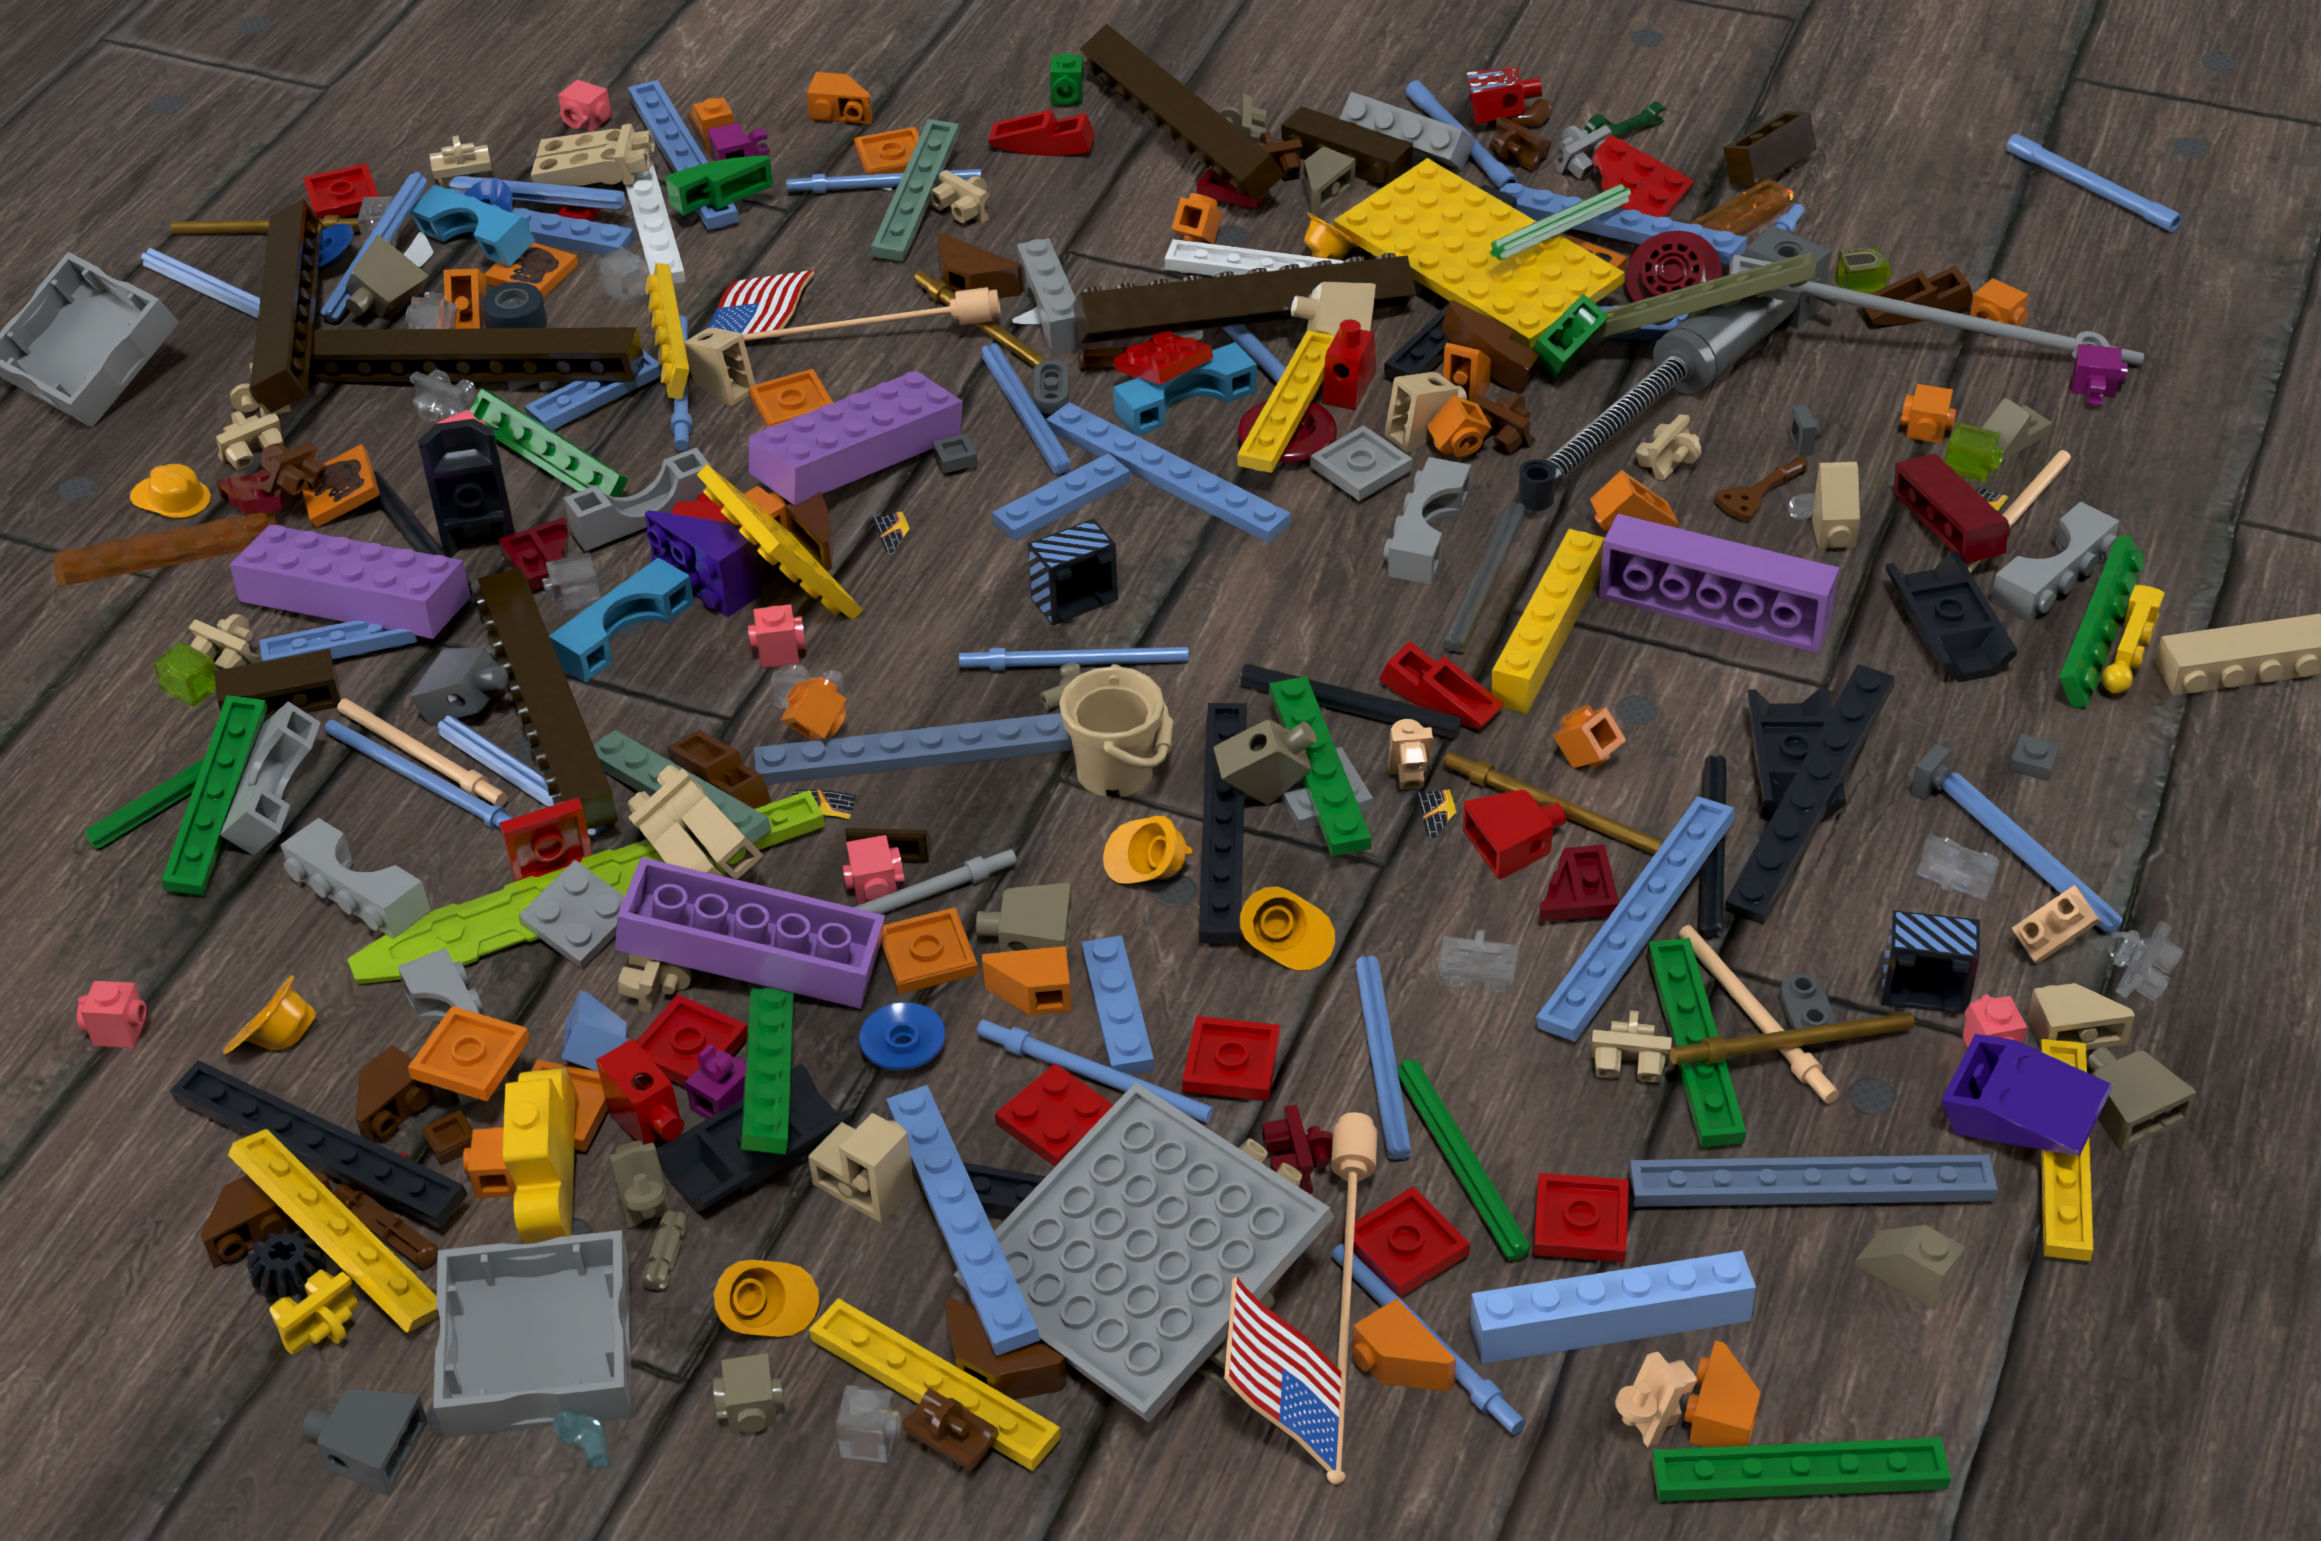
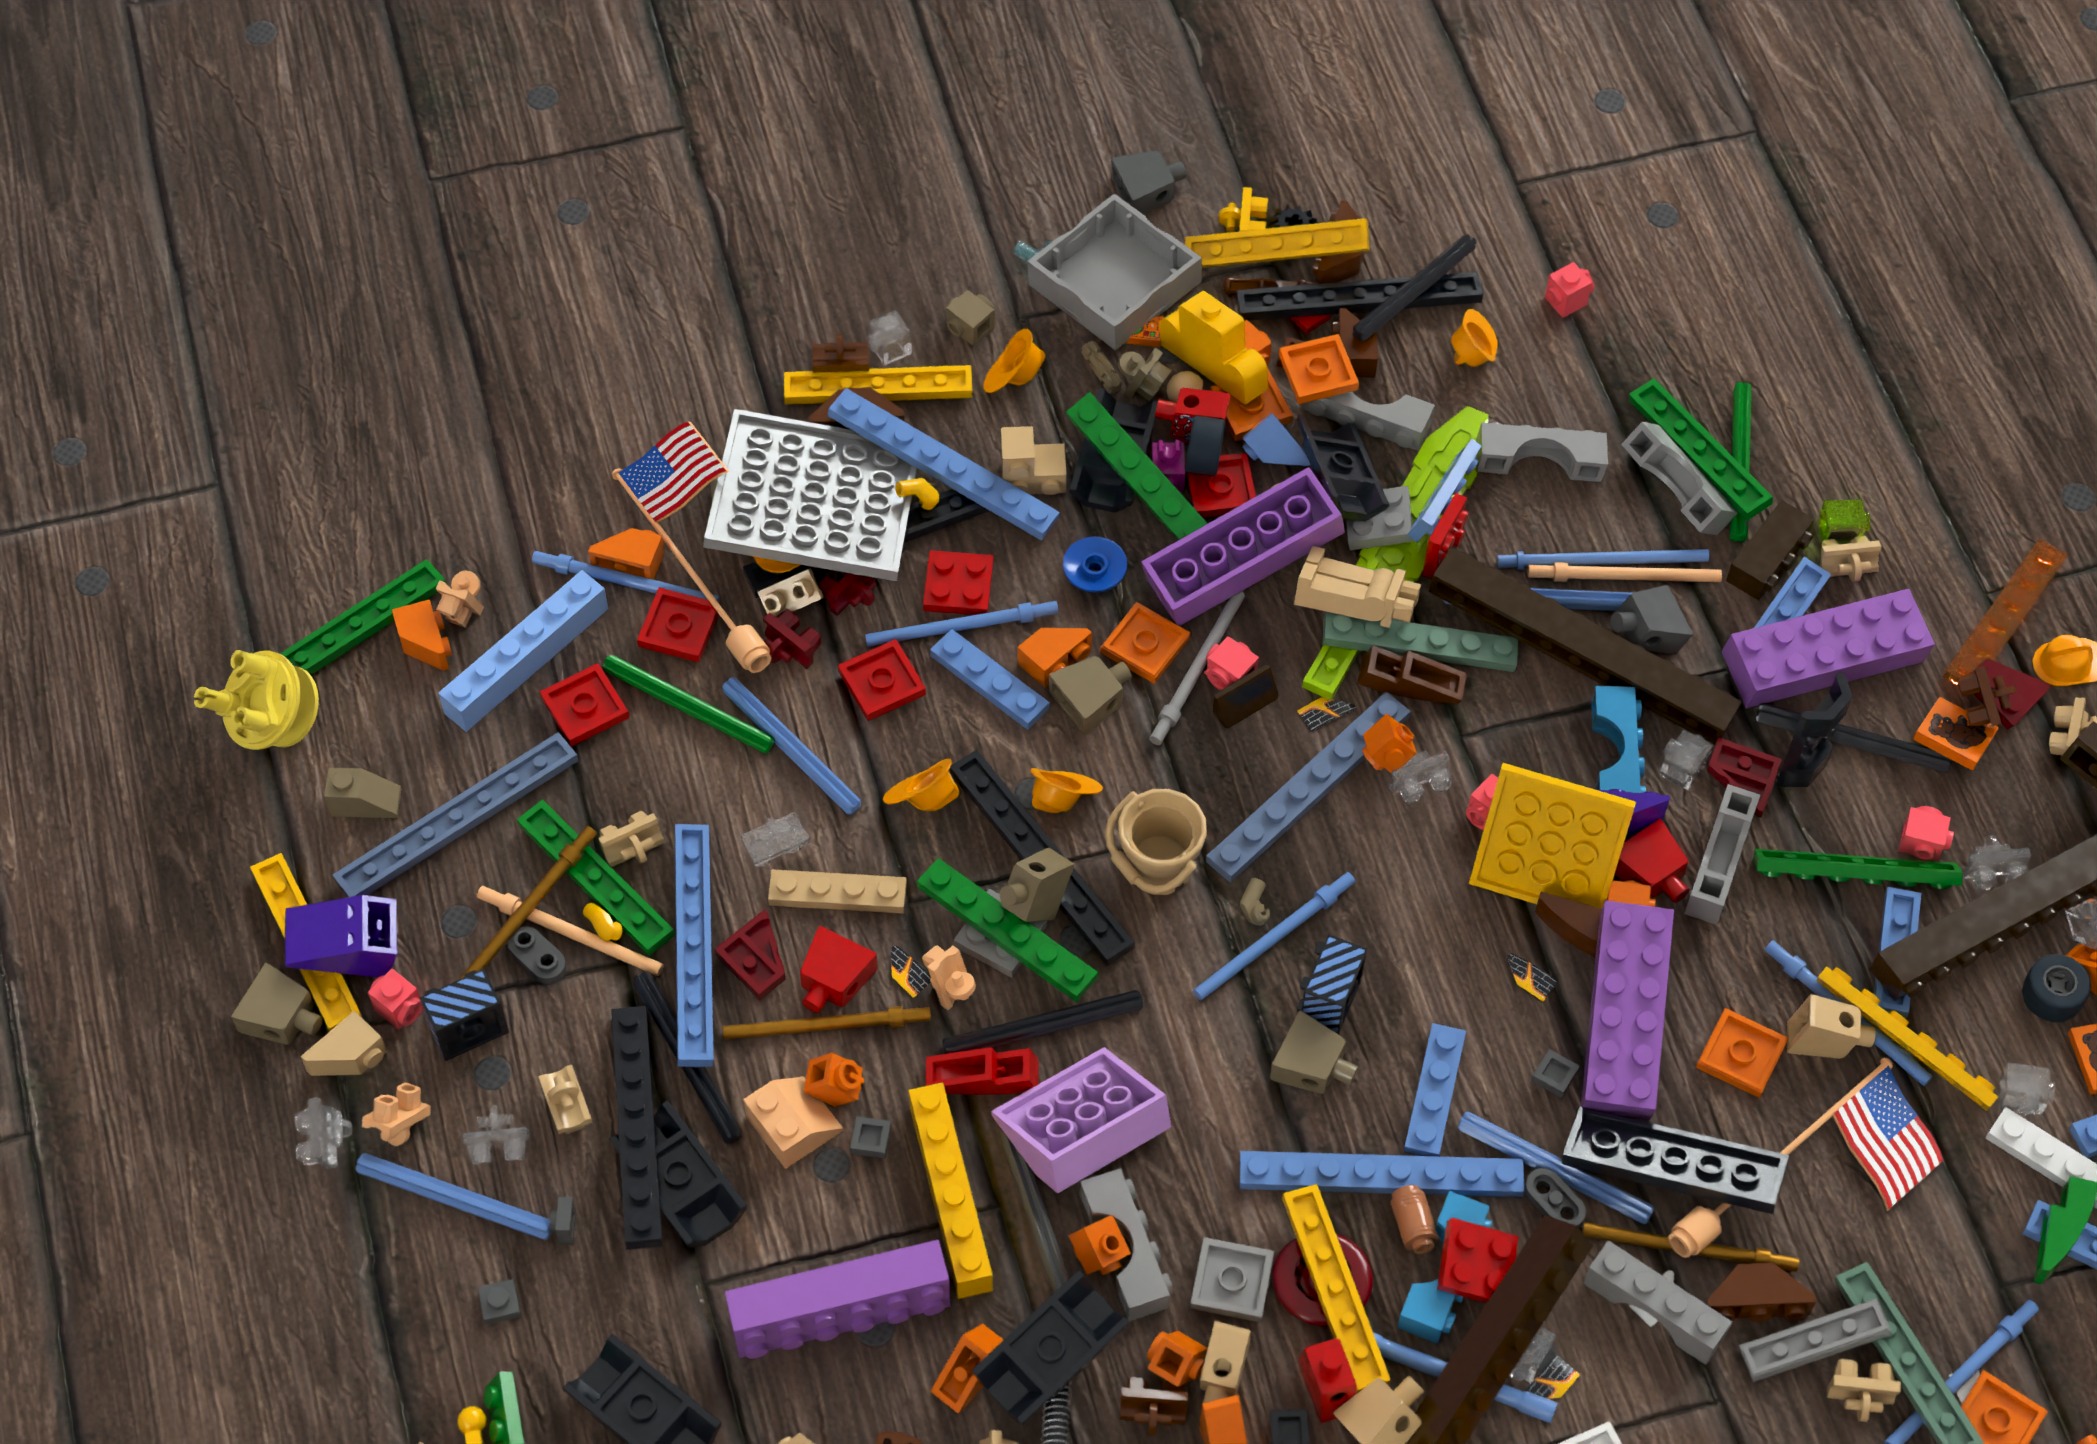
camera: 140 degrees right, 15 degrees up
(259, 1094) = (1413, 288): none -> black axle
(497, 873) = (1441, 497): none -> plate
(559, 960) = (1344, 470): none -> black piece
(598, 1152) = (1182, 380): none -> tan piece
(675, 1037) = (1205, 445): none -> black wheel
(939, 342) = (1676, 1160): none -> black plate
(942, 218) = (1815, 1340): none -> light grey tile
(1016, 1188) = (926, 493): none -> yellow arm
(1146, 556) = (1312, 1057): none -> dark tan torso
(1175, 424) = (1414, 1219): none -> nougat head
(1383, 598) = (1083, 1118): none -> lavender slope
(1445, 900) = (837, 891): none -> tan plate
(1455, 517) = (1100, 1246): none -> orange brick
(1564, 443) = (1049, 1348): none -> black piece
(1585, 691) = (870, 1137): none -> dark grey plate
(1656, 741) = (790, 1119): none -> light nougat slope
(1719, 981) = (602, 922): none -> yellow arm
(1866, 858) = (565, 1100): none -> tan hips
(1982, 1384) = (264, 701): none -> light yellow piece

